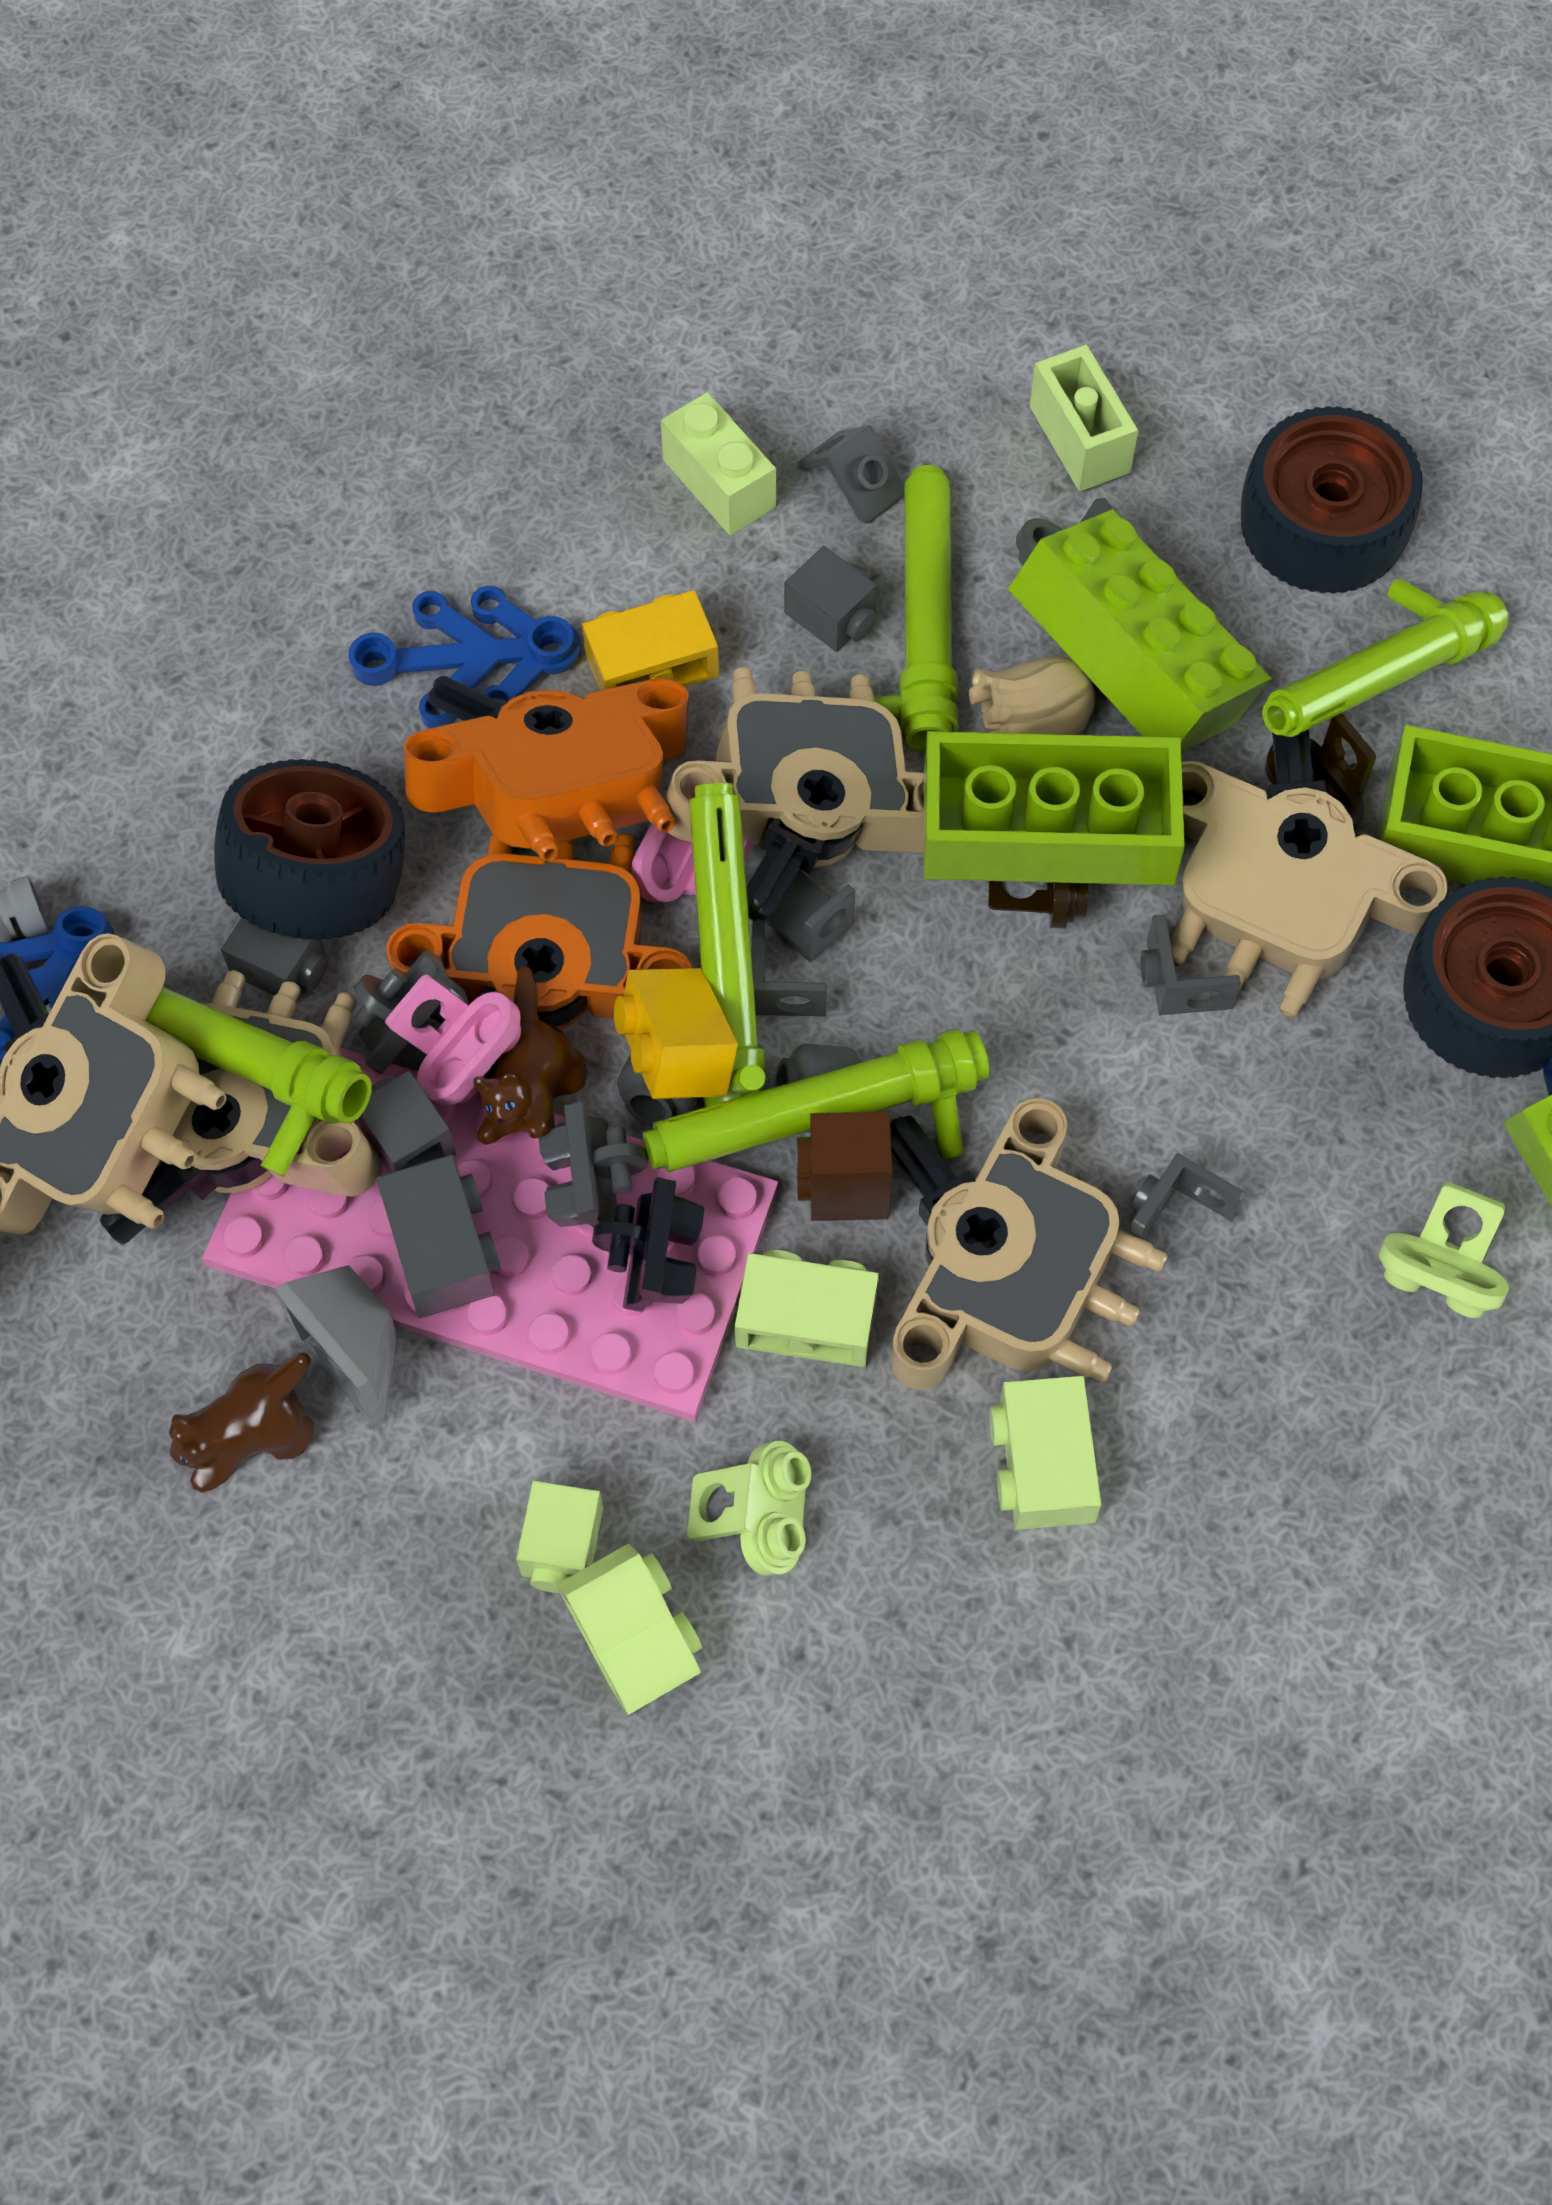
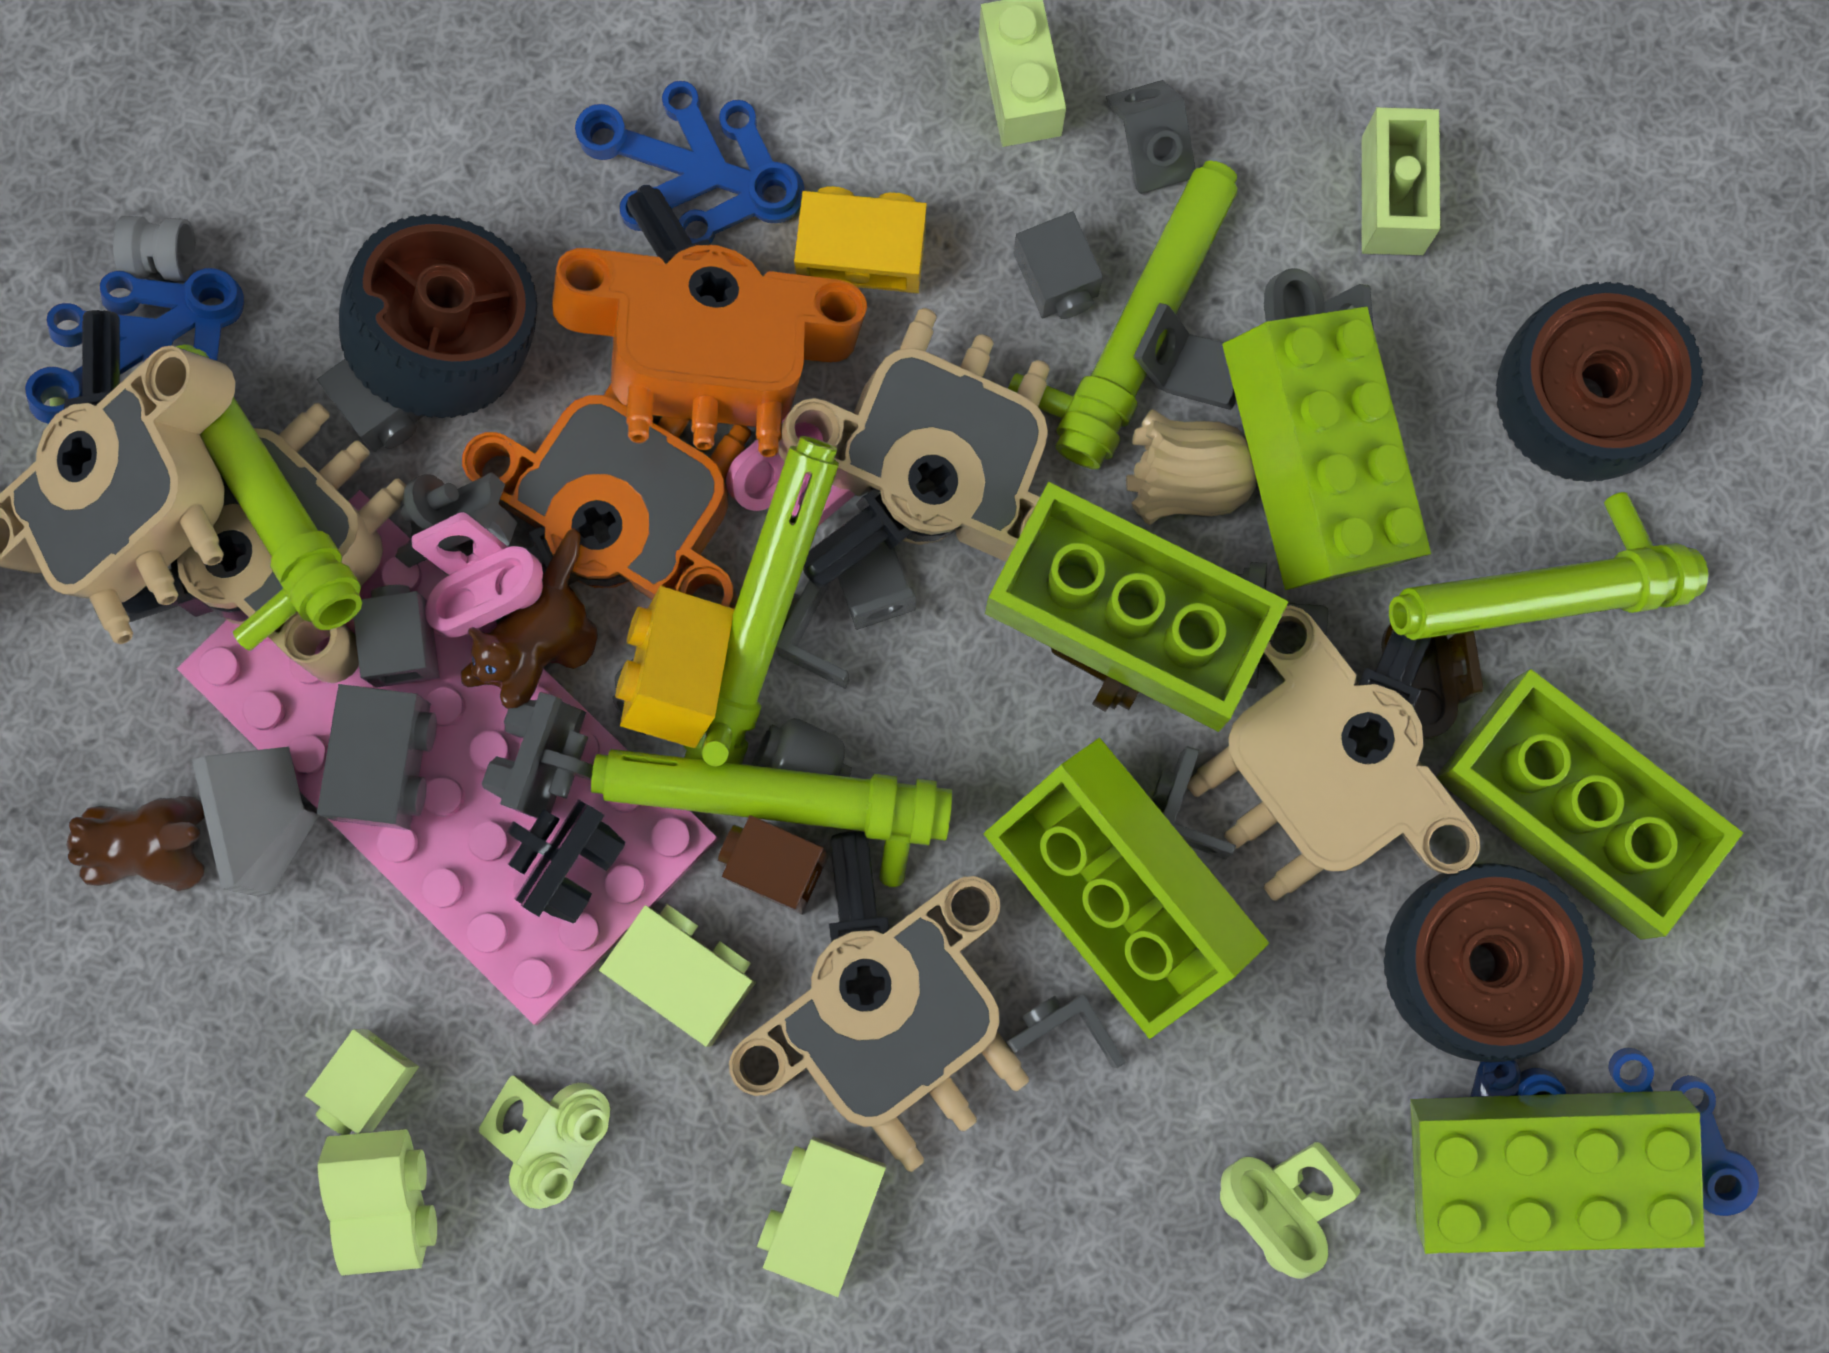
camera: 25 degrees right, 15 degrees up
(985, 631) = (1191, 364): none -> dark grey bracket
(1164, 1047) = (1126, 888): none -> lime brick

